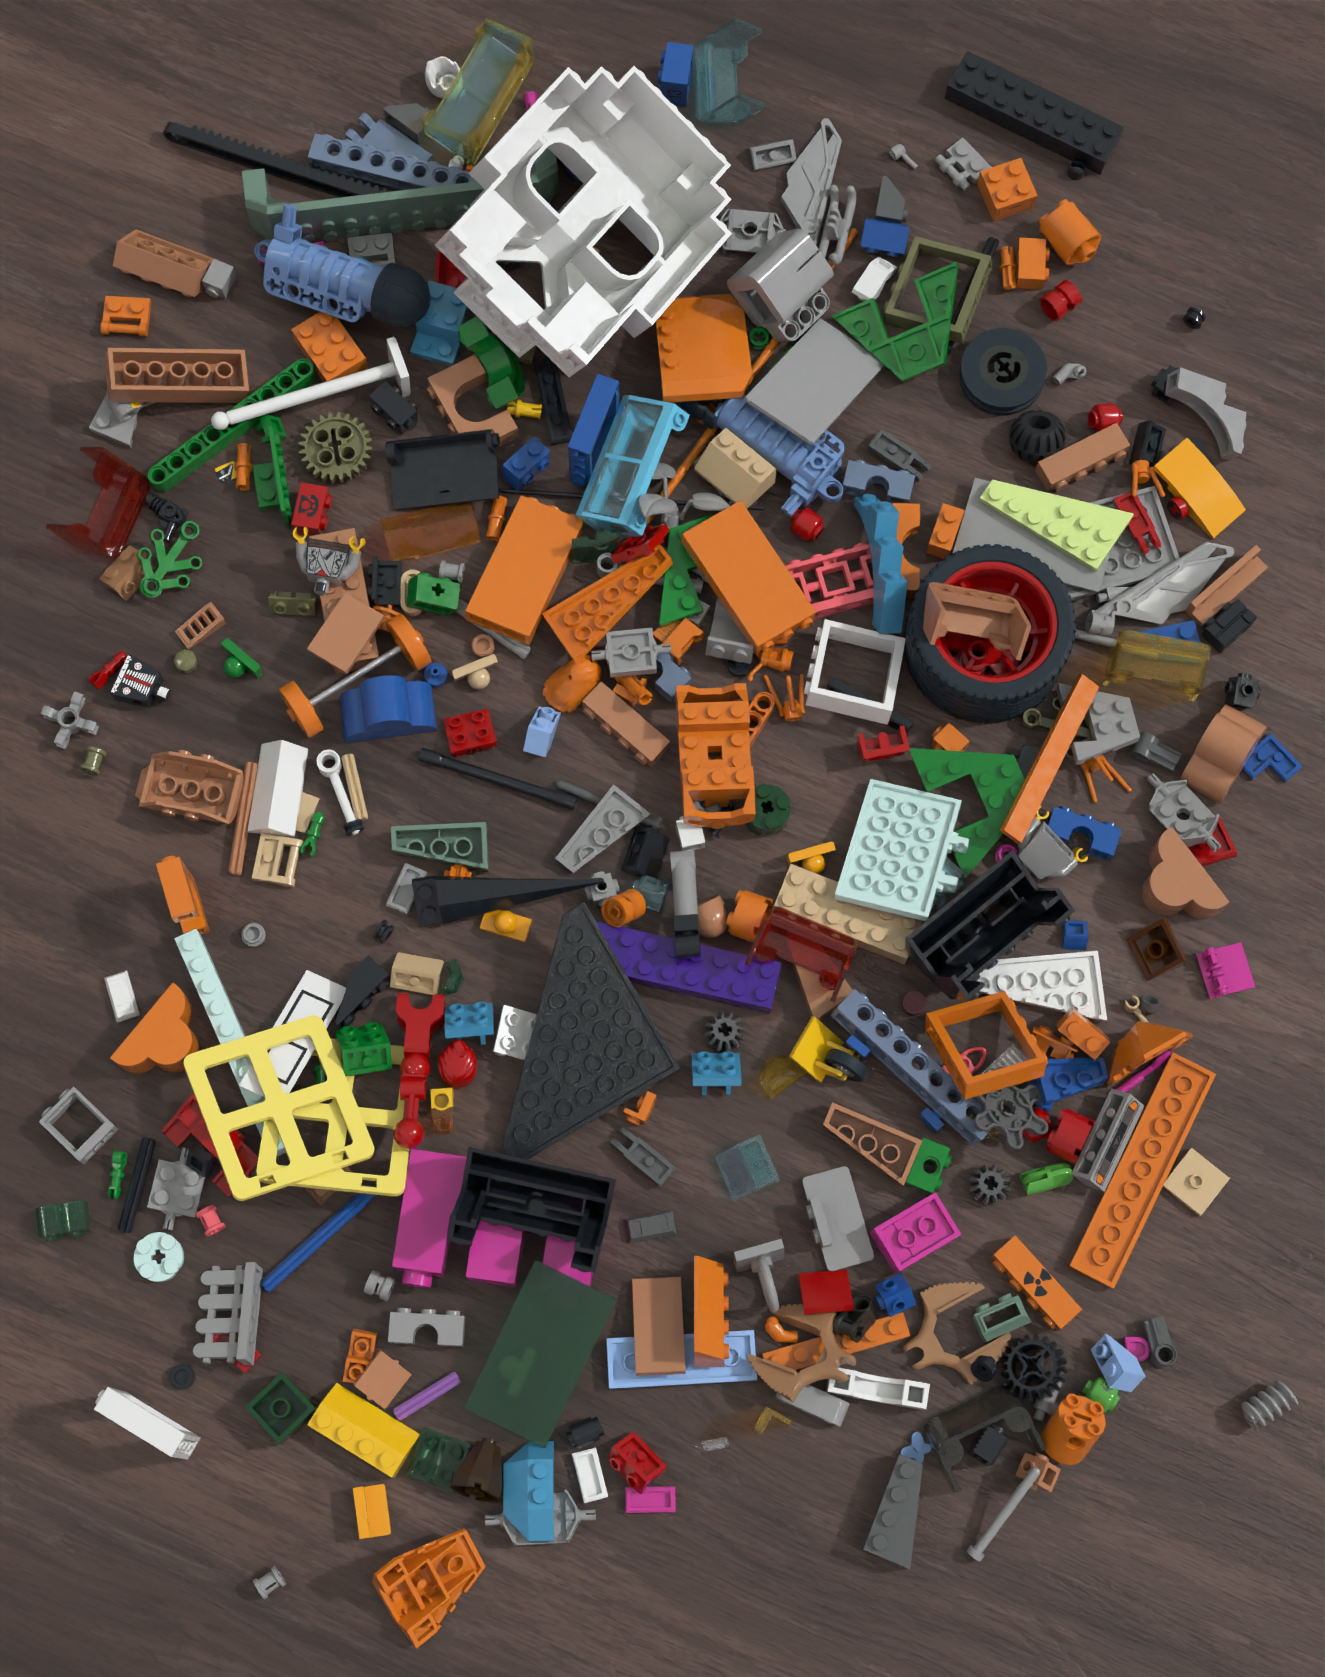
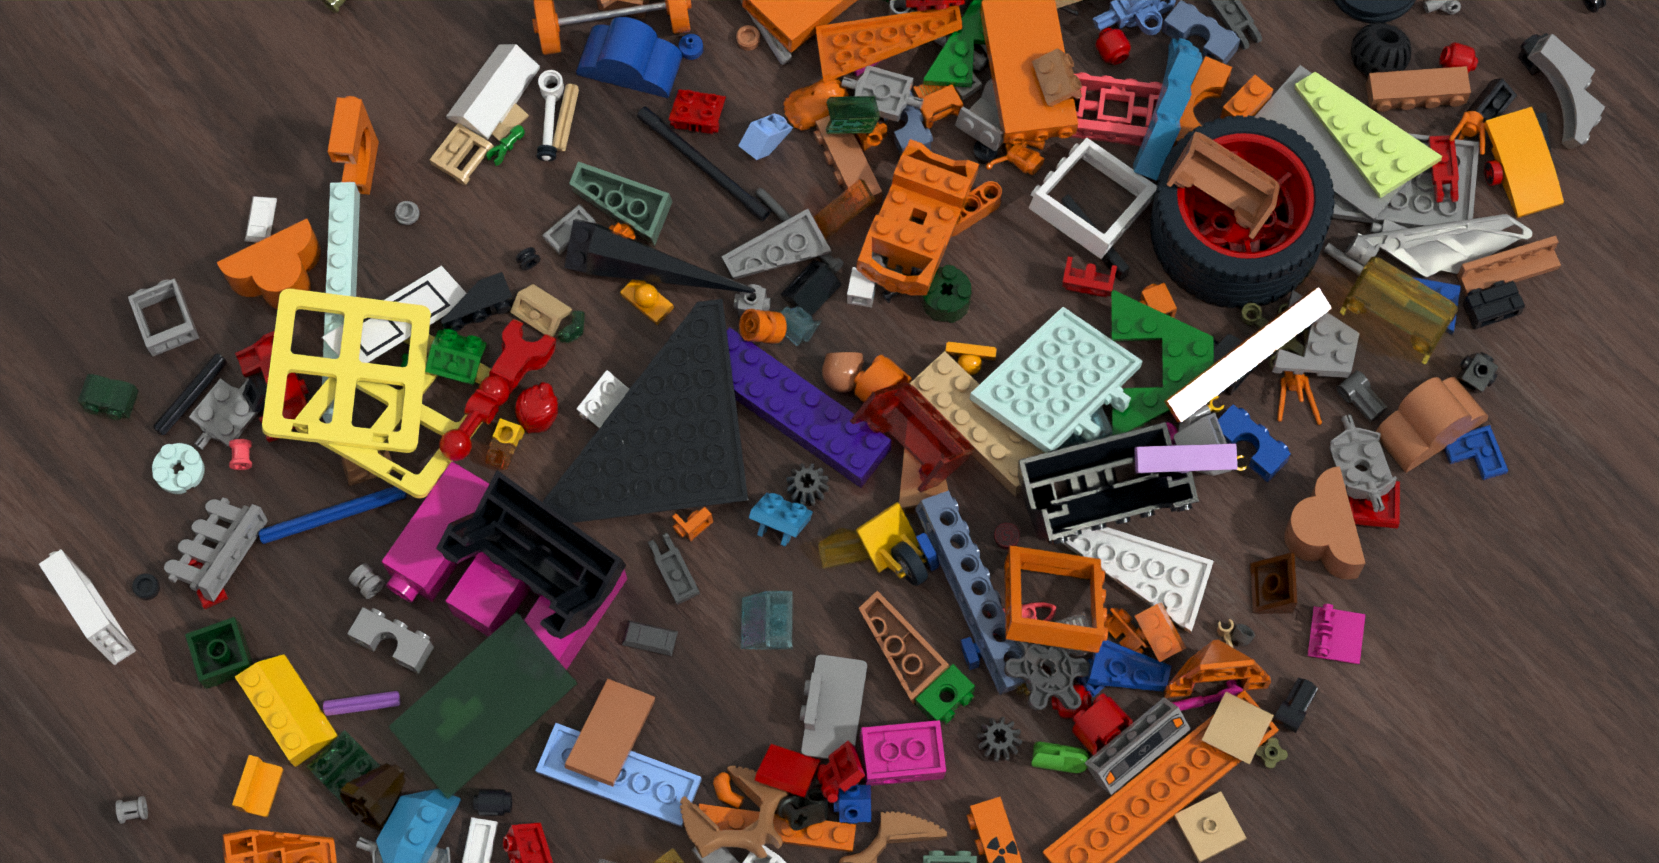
camera: 30 degrees right, 5 degrees down
(118, 1163) = (184, 366): green piece -> none
(190, 786) = (415, 55): nougat slope -> none
(242, 819) = (439, 117): nougat axle -> none
(360, 1354) = (318, 640): orange slope -> none
(382, 1379) = (327, 669): nougat piece -> none
(469, 1021) = (567, 371): dark azure plate -> none
(476, 672) = (729, 56): tan tile -> none
(615, 684) = (852, 114): none -> clear green panel
(644, 770) = (844, 208): none -> clear orange plate
(685, 904) = (814, 361): piece -> none
(709, 1313) = (662, 738): orange slope -> none
(760, 1260) = (737, 710): light grey tile -> none
(780, 578) = (1057, 77): none -> medium nougat bracket
(792, 709) = (1016, 212): orange plant -> none
(877, 1268) = (841, 772): none -> red plate
(1041, 874) = (1185, 458): none -> lavender tile
(1075, 935) = (1198, 538): blue slope -> none
(1183, 1088) = (1237, 727): none -> tan slope
(1219, 1053) = (1293, 709): none -> black piece
(1219, 1103) = (1271, 760): none -> olive plate

